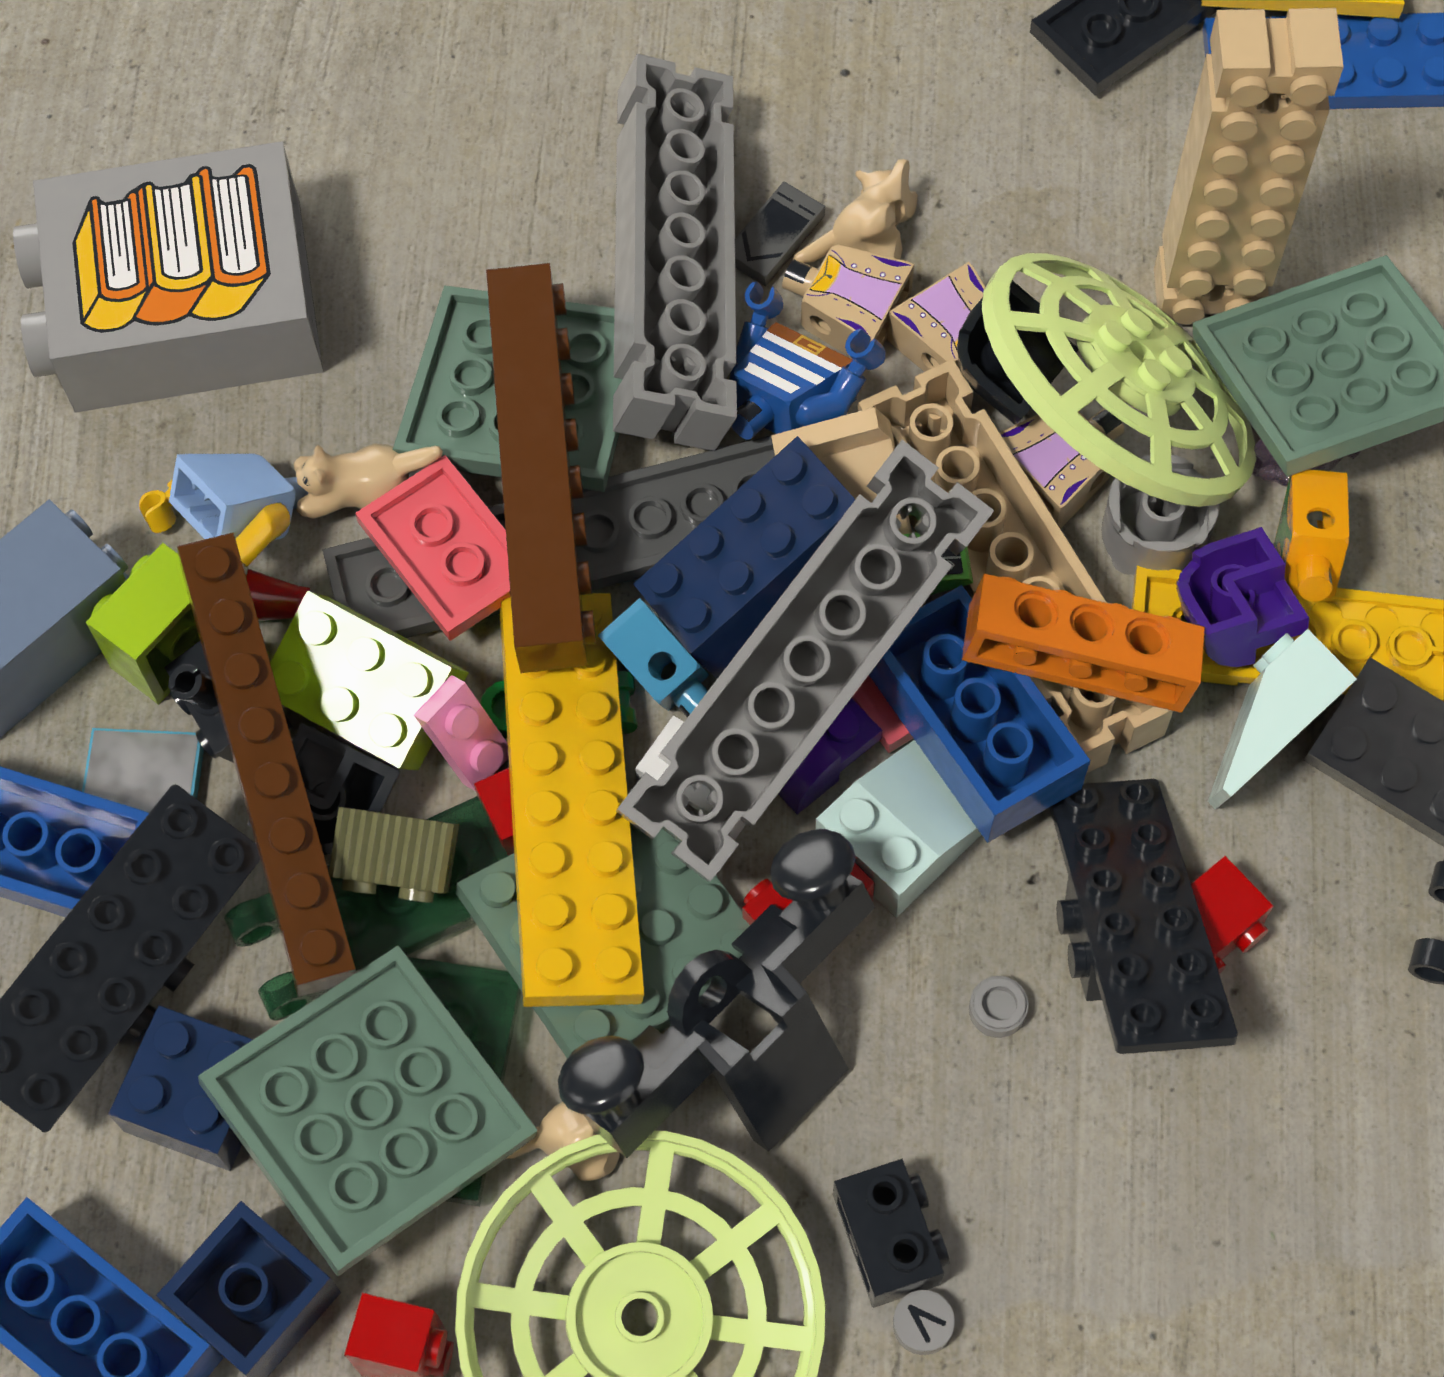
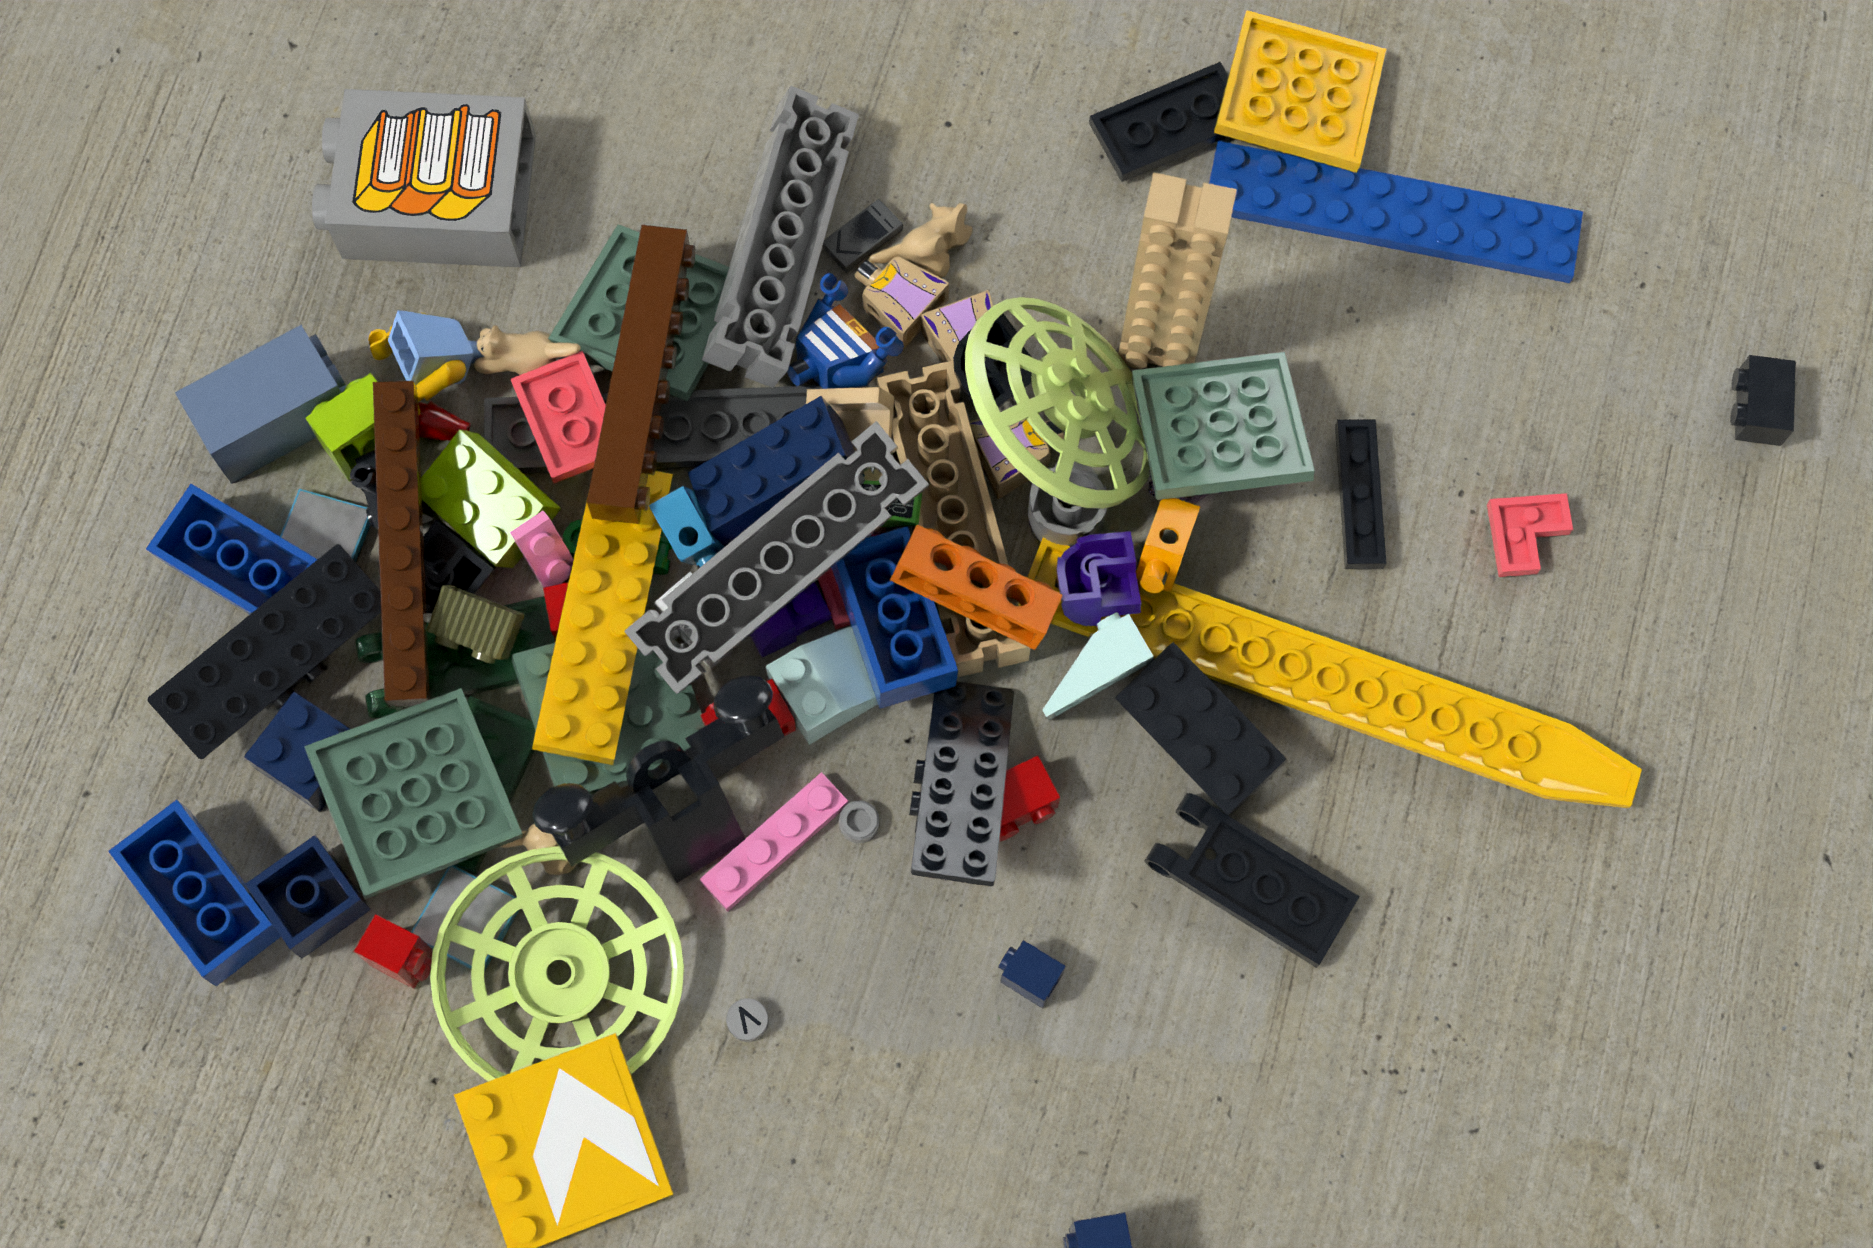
camera: 10 degrees right, 5 degrees up
(444, 1260) = (474, 918): none -> flat silver tile
(888, 1062) = (774, 842): none -> bright pink plate
(890, 1232) = (739, 955): black brick -> none
(1304, 1160) = (1030, 973): none -> dark blue brick

